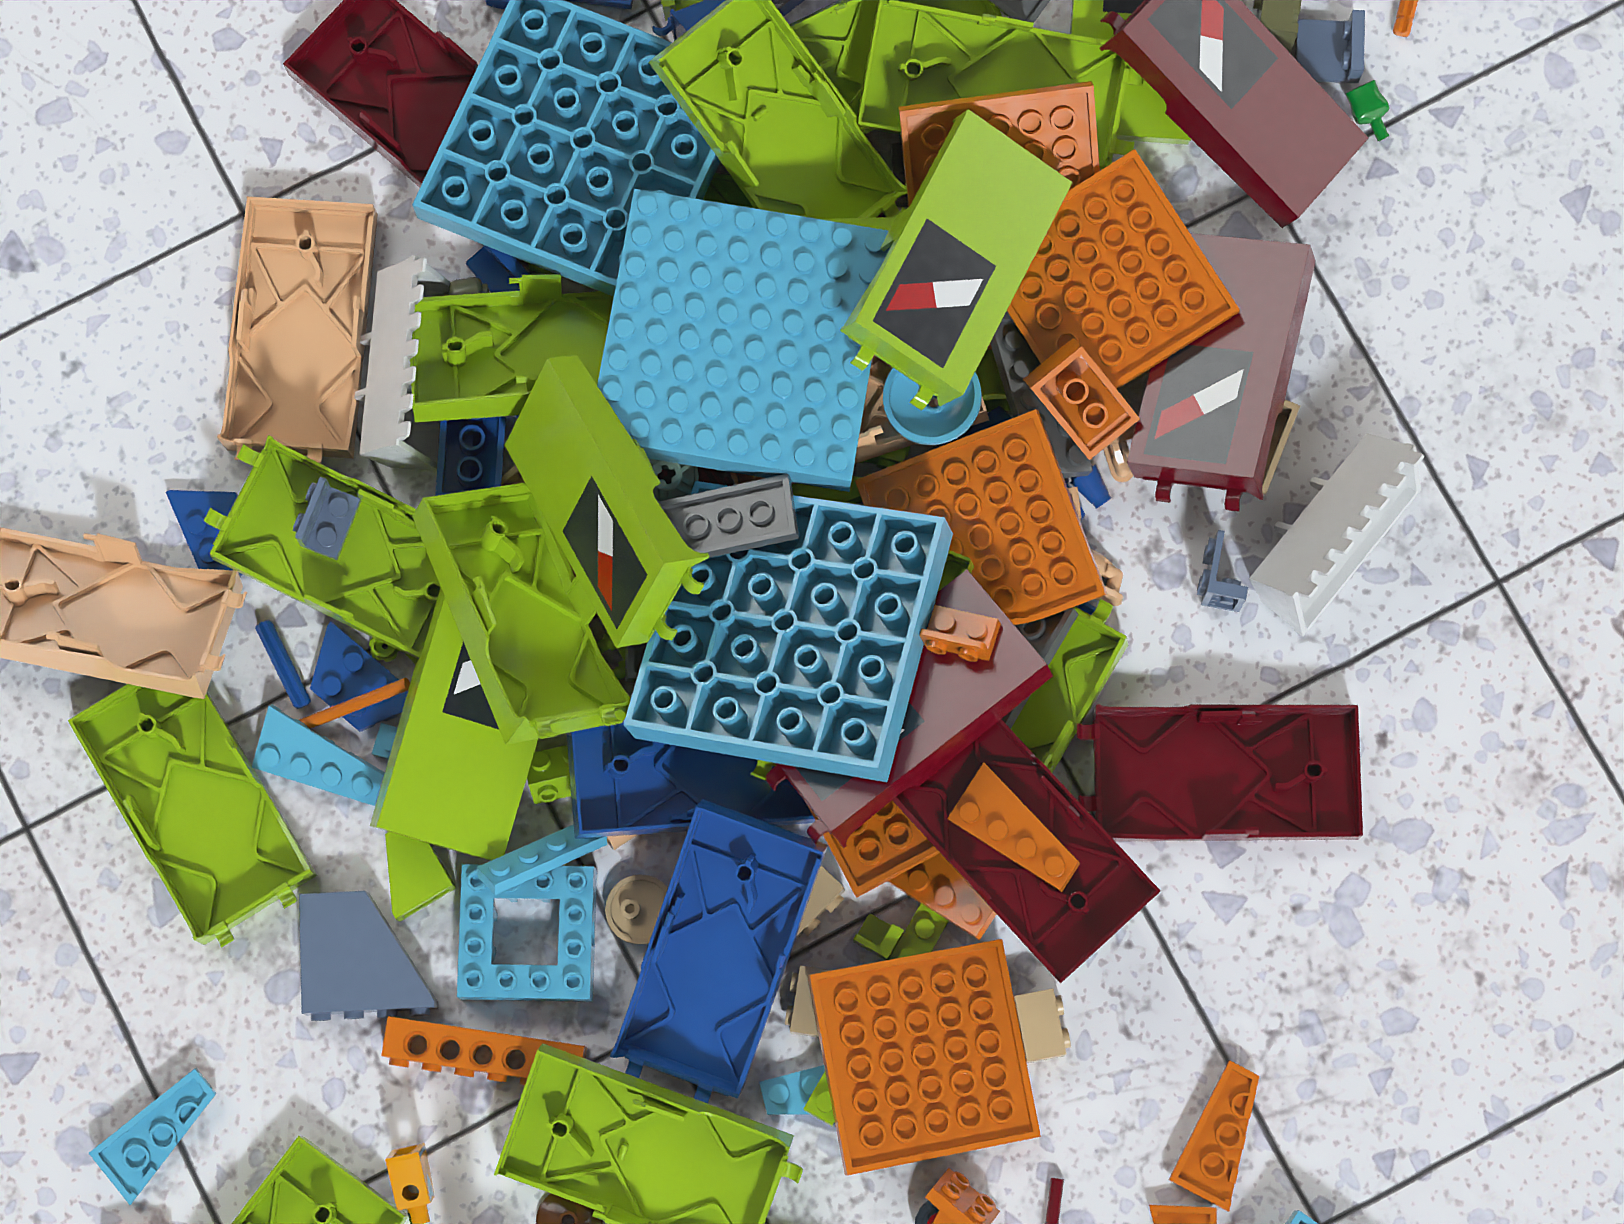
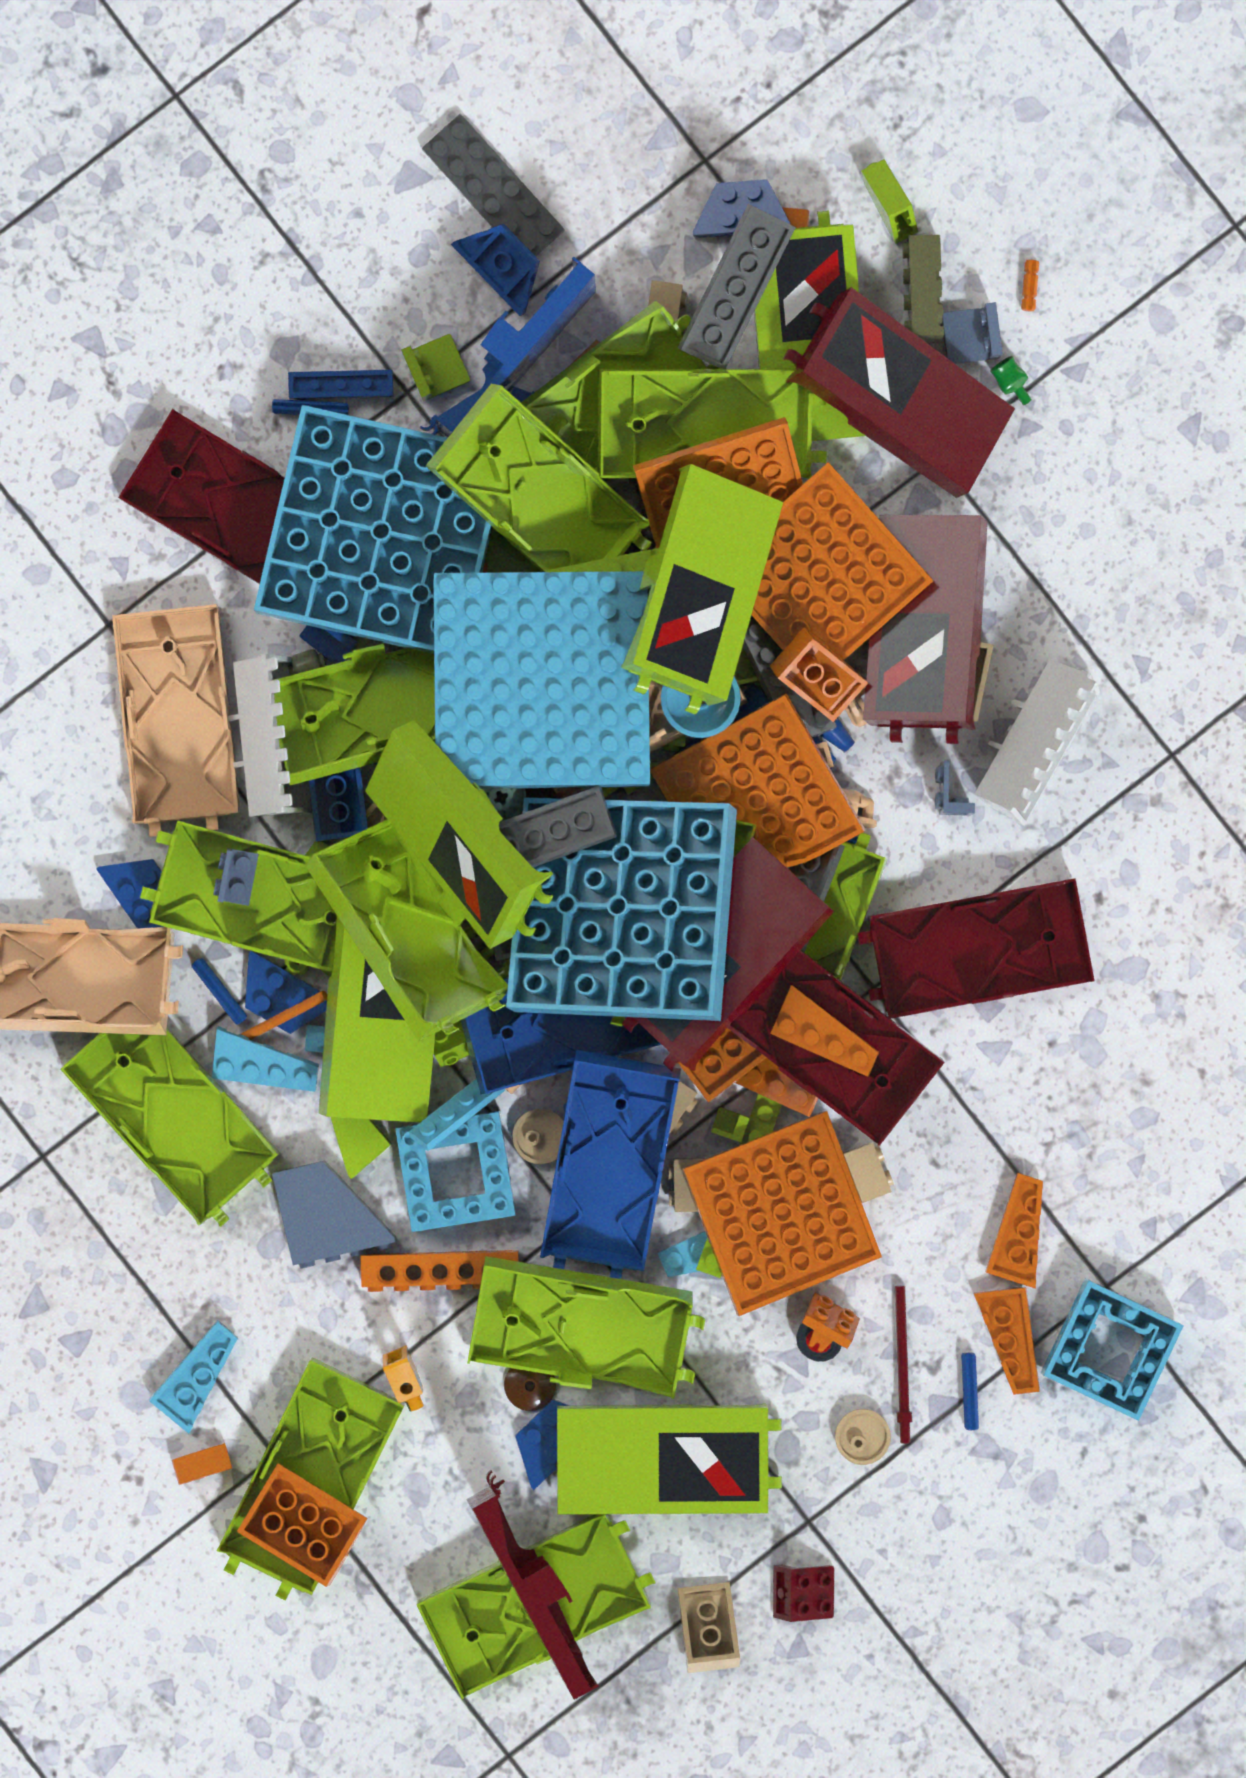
camera: 10 degrees left, 10 degrees up
(961, 633) = (757, 892): orange bracket -> none

